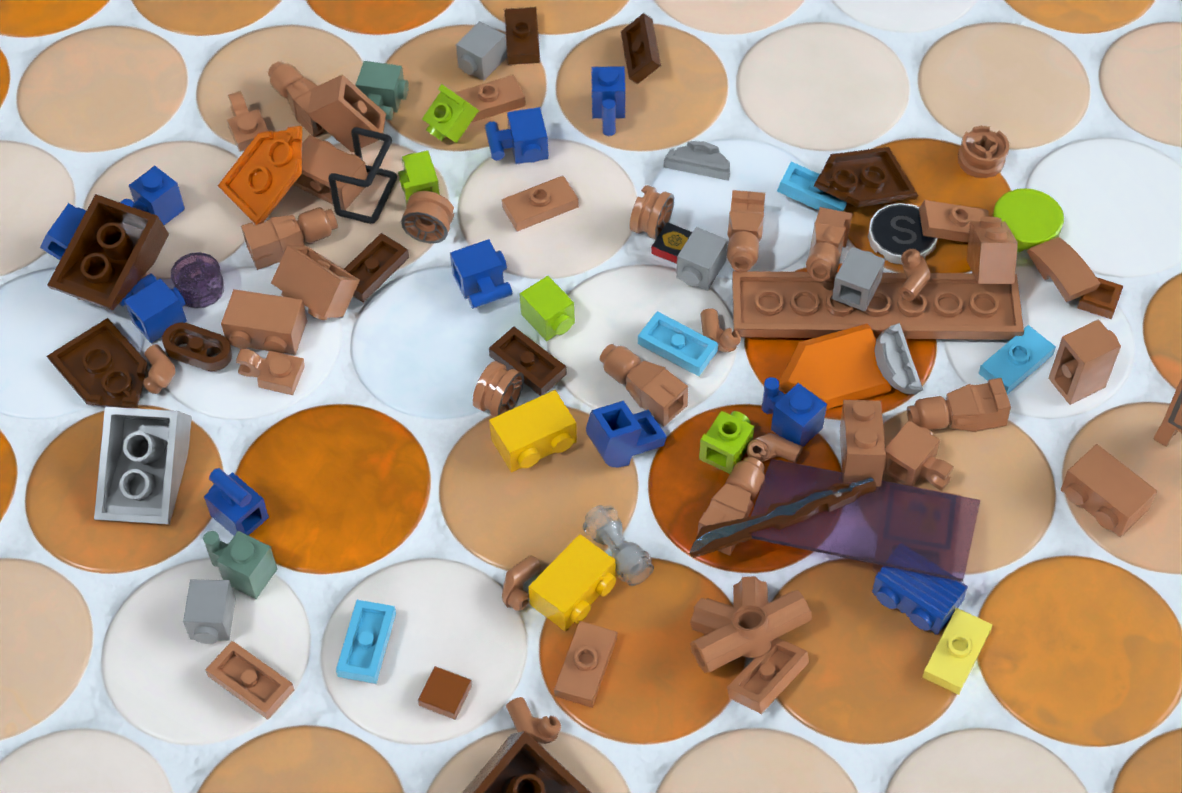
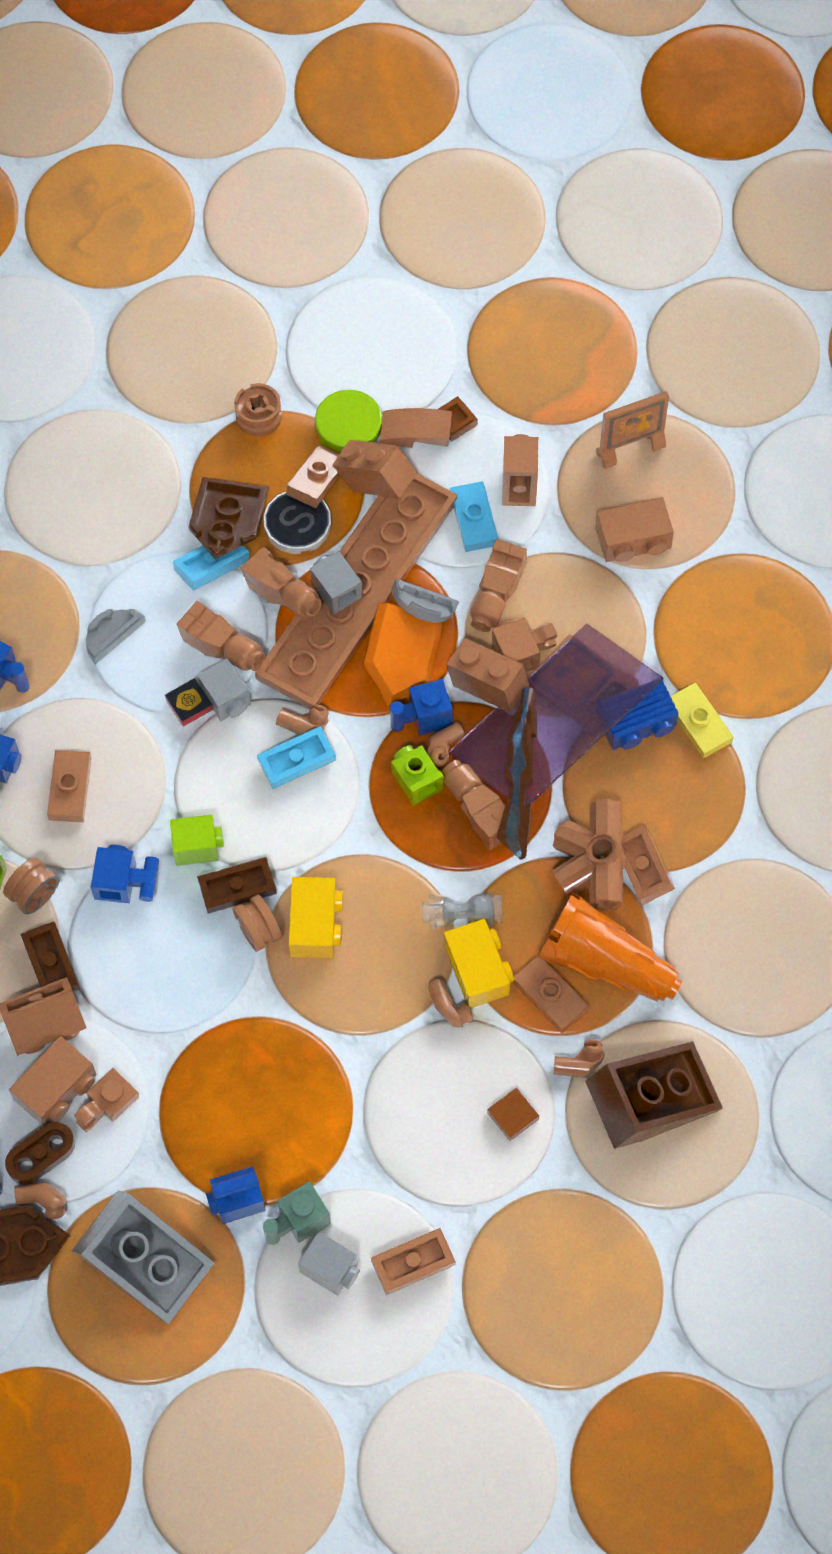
camera: 60 degrees left, 10 degrees up
(366, 641) = (432, 1151): medium azure plate -> none
(621, 434) = (365, 847): blue brick -> none
(646, 382) = (323, 803): nougat piece -> none
(651, 212) = (151, 700): nougat wheel -> none
(651, 674) = (603, 950): none -> orange cone
(916, 273) = (355, 536): nougat arm -> none

